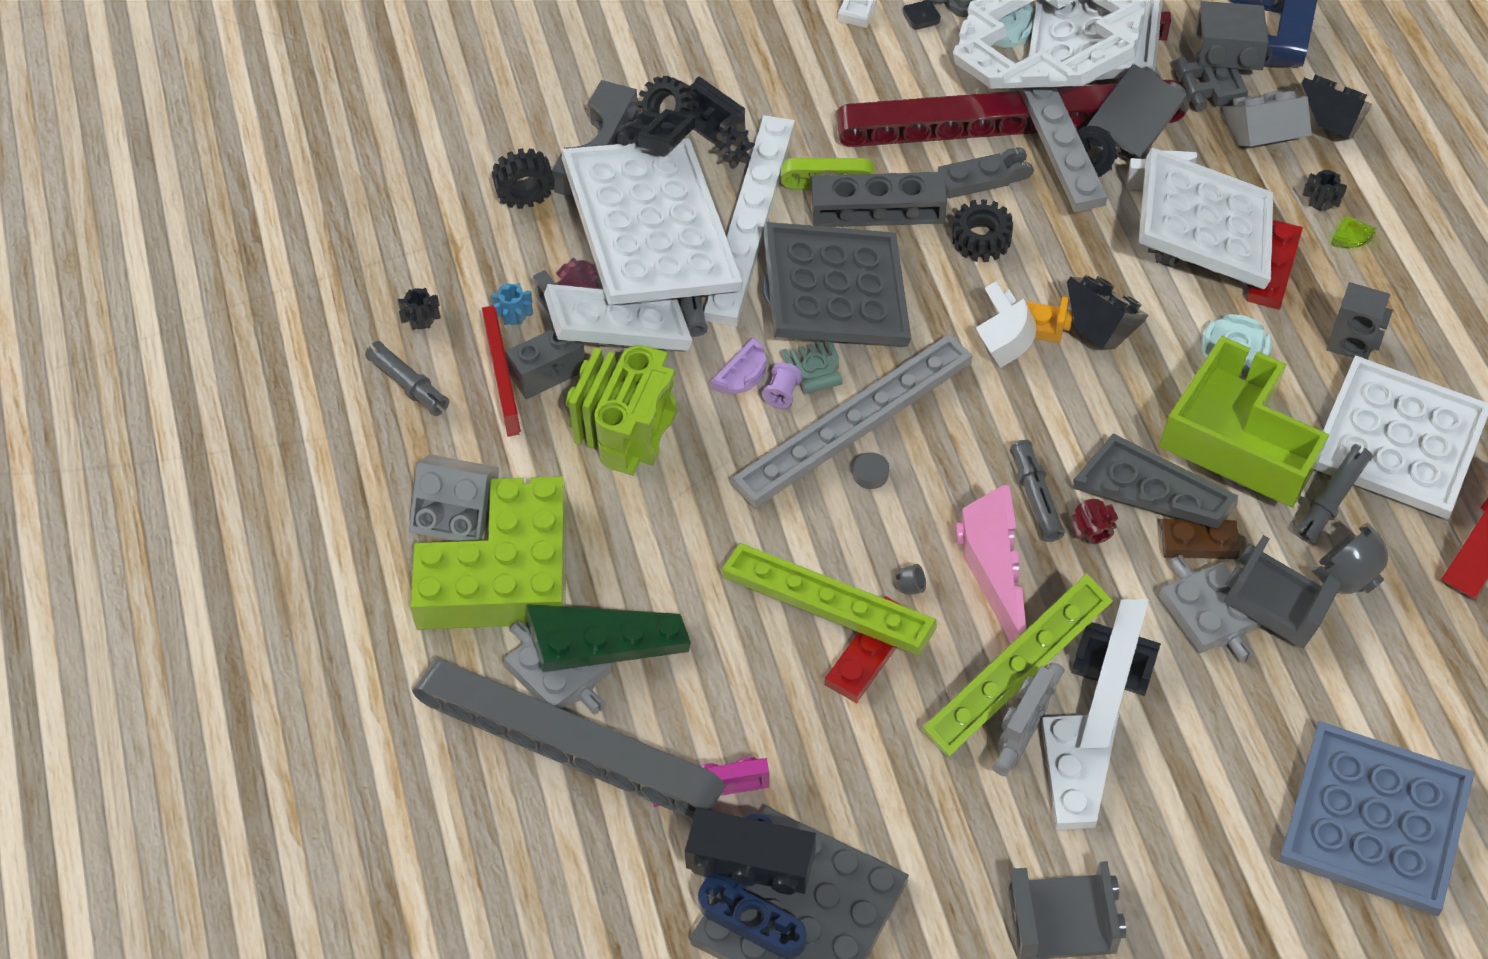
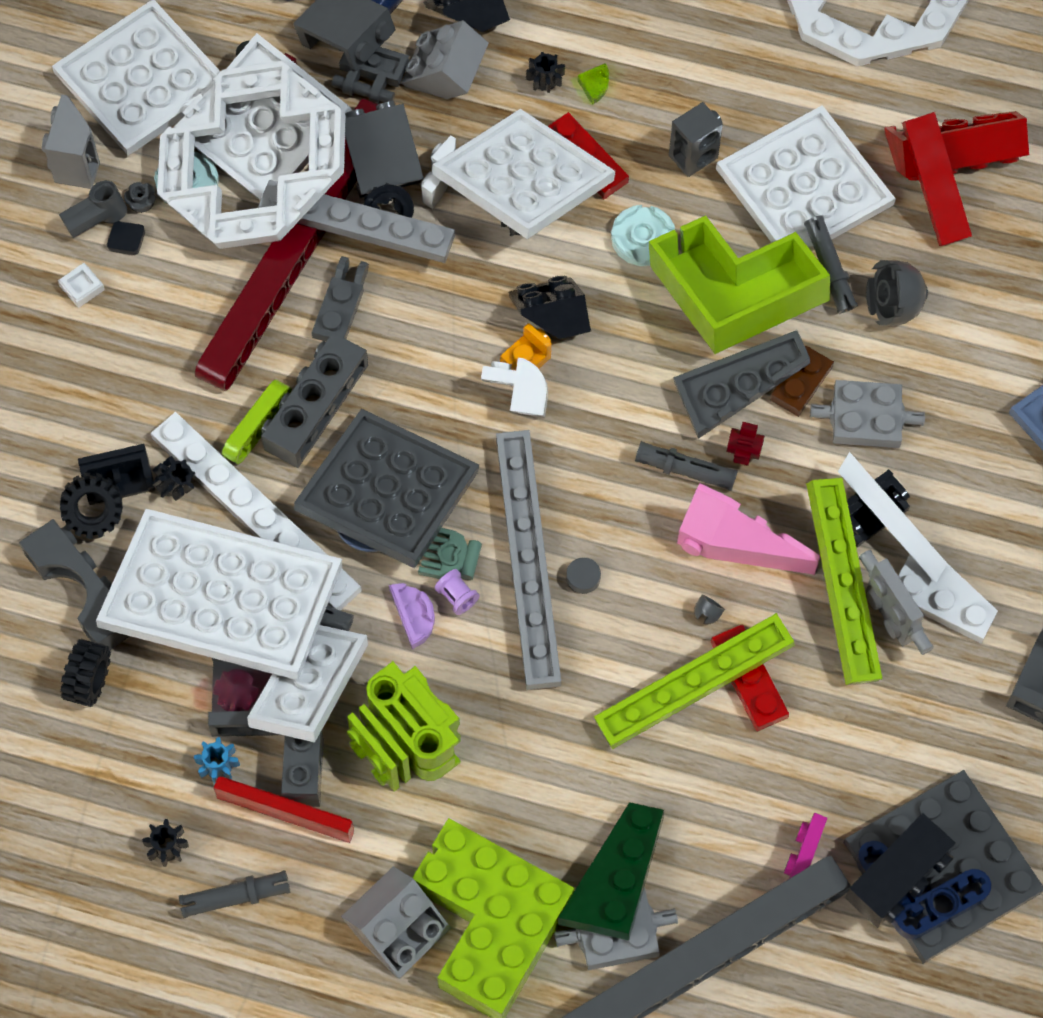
camera: 60 degrees left, 10 degrees up
(657, 131) = (136, 522): black plate -> none
(982, 216) = (404, 325): black tyre -> none
(1279, 595) = (896, 359): dark grey panel -> none

